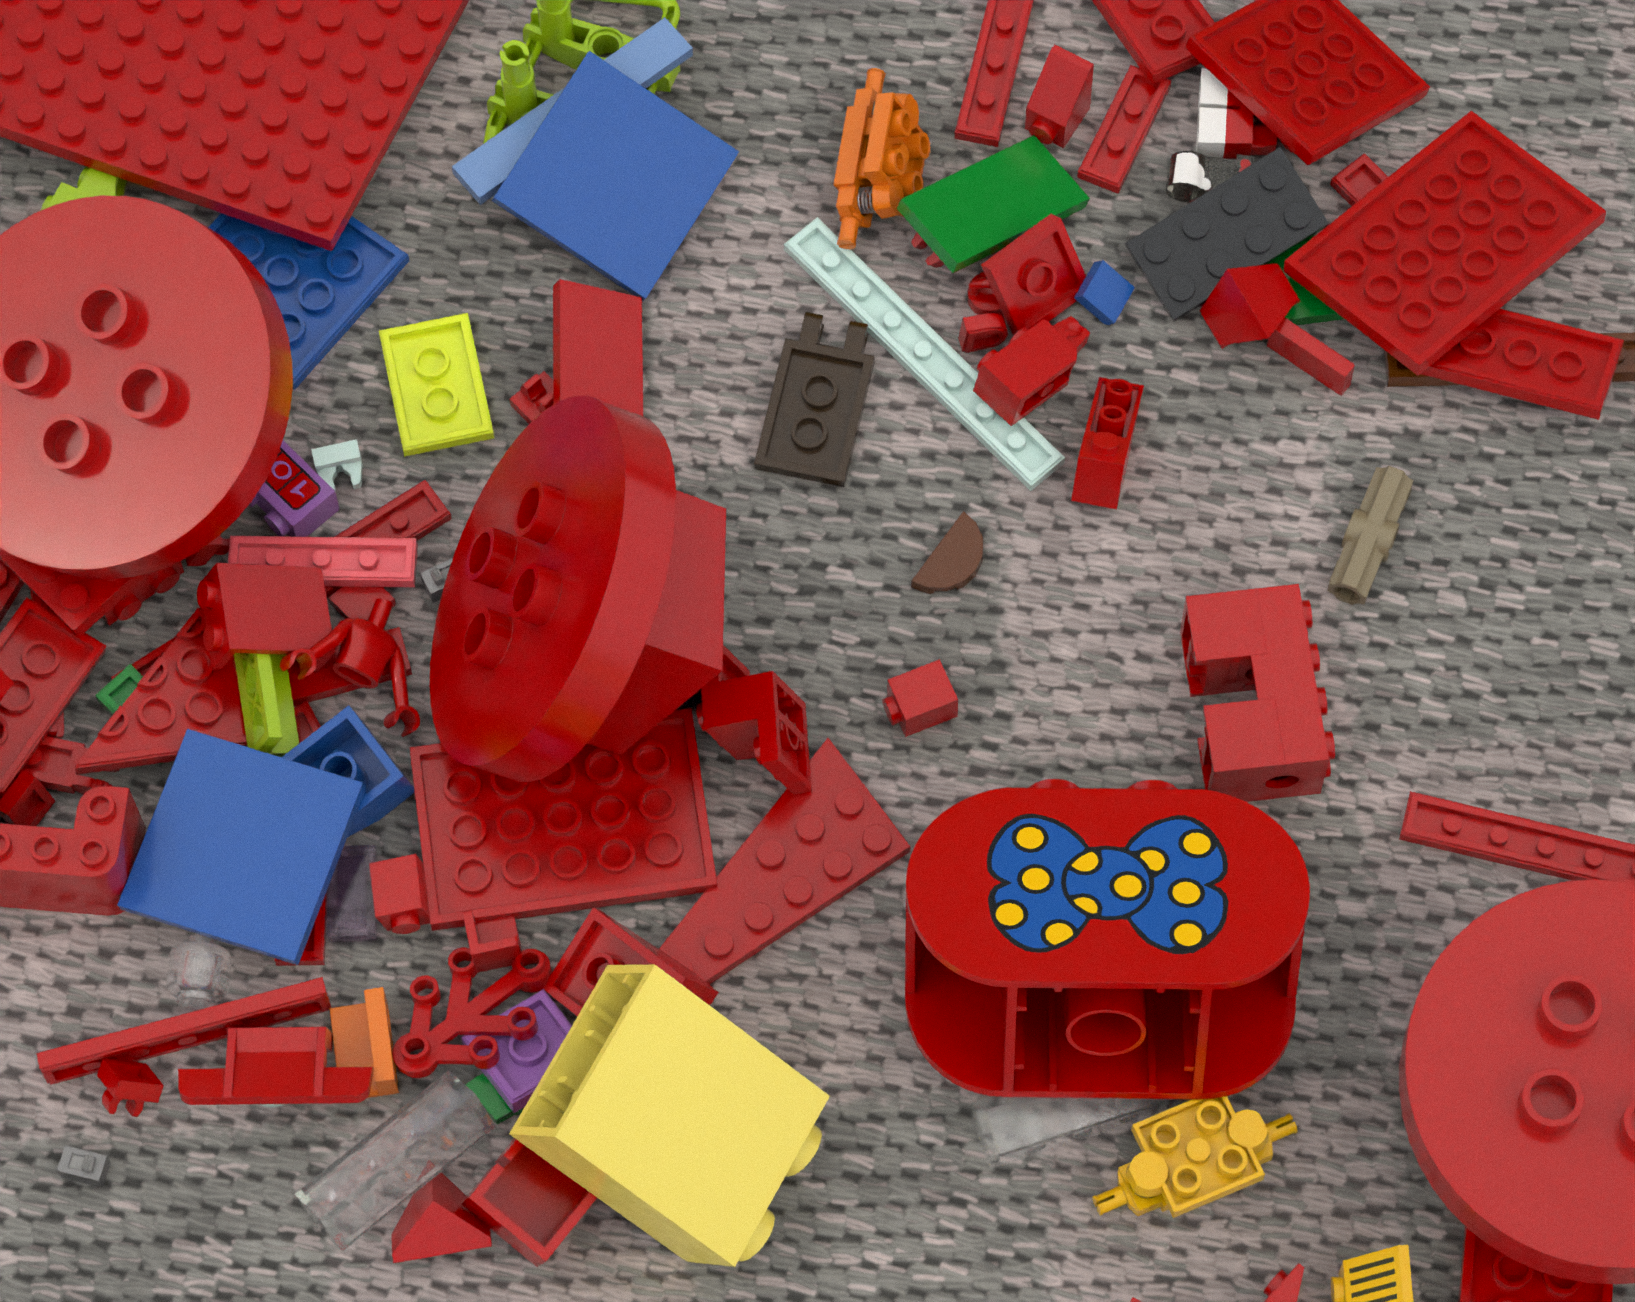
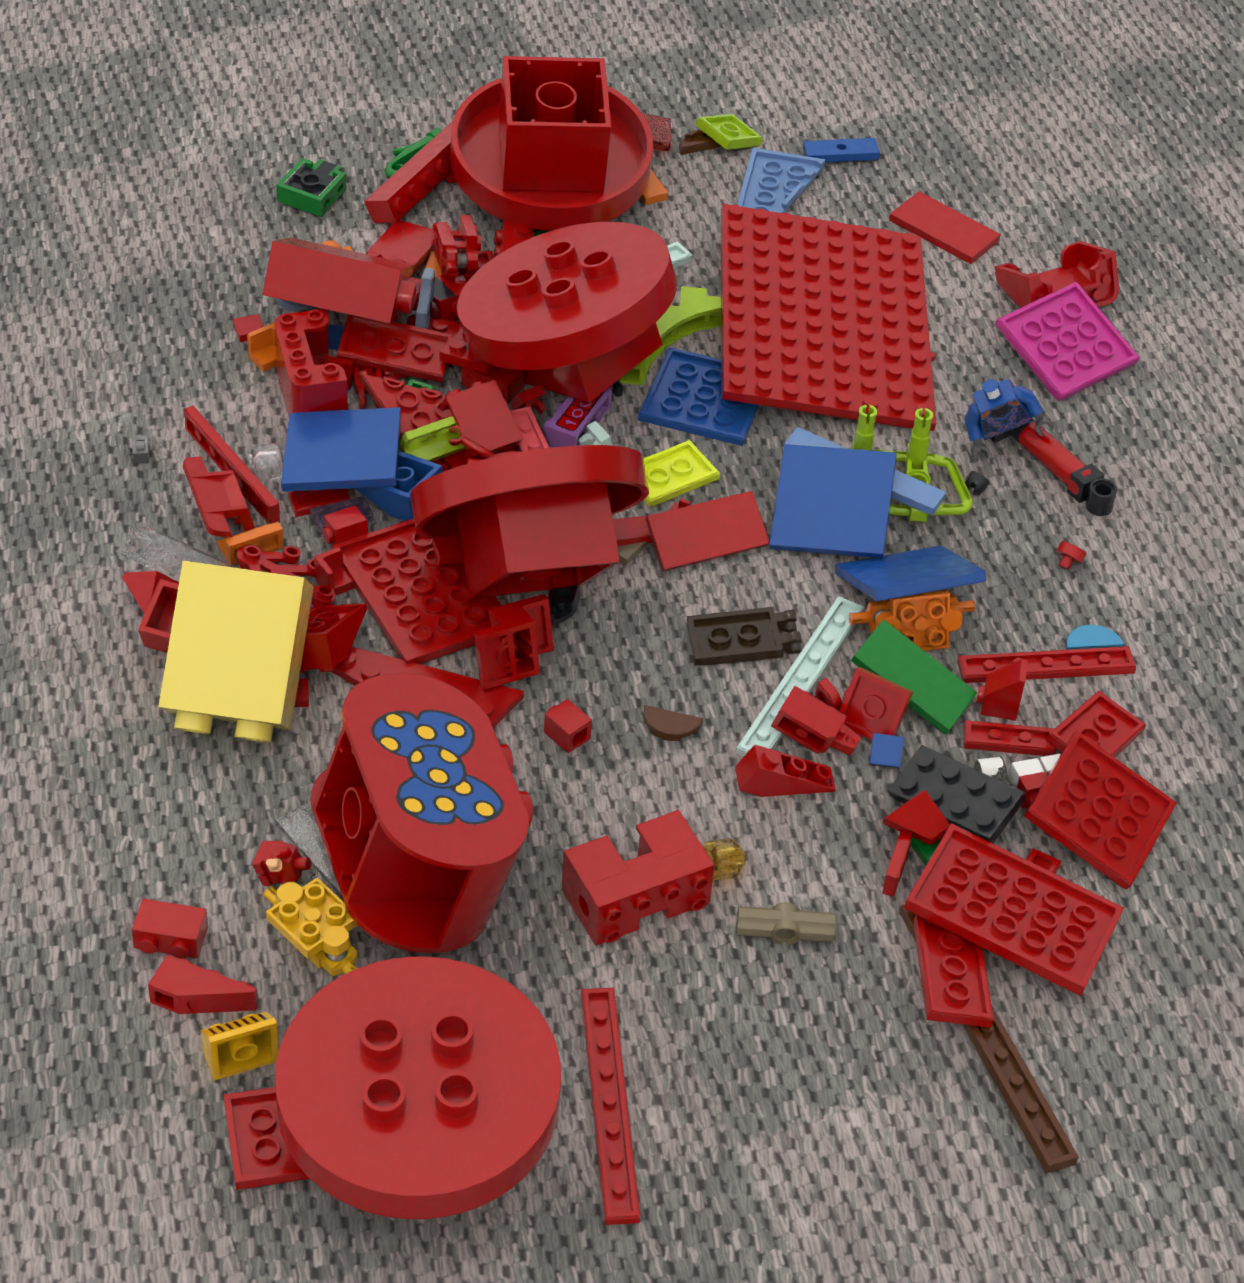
camera: 65 degrees right, 20 degrees down
(128, 1081) = (191, 446): red tile -> none
(804, 130) = (910, 573): none -> blue tile
(1067, 1169) = (279, 863): none -> red piece
(1235, 568) = (727, 857): none -> clear yellow head

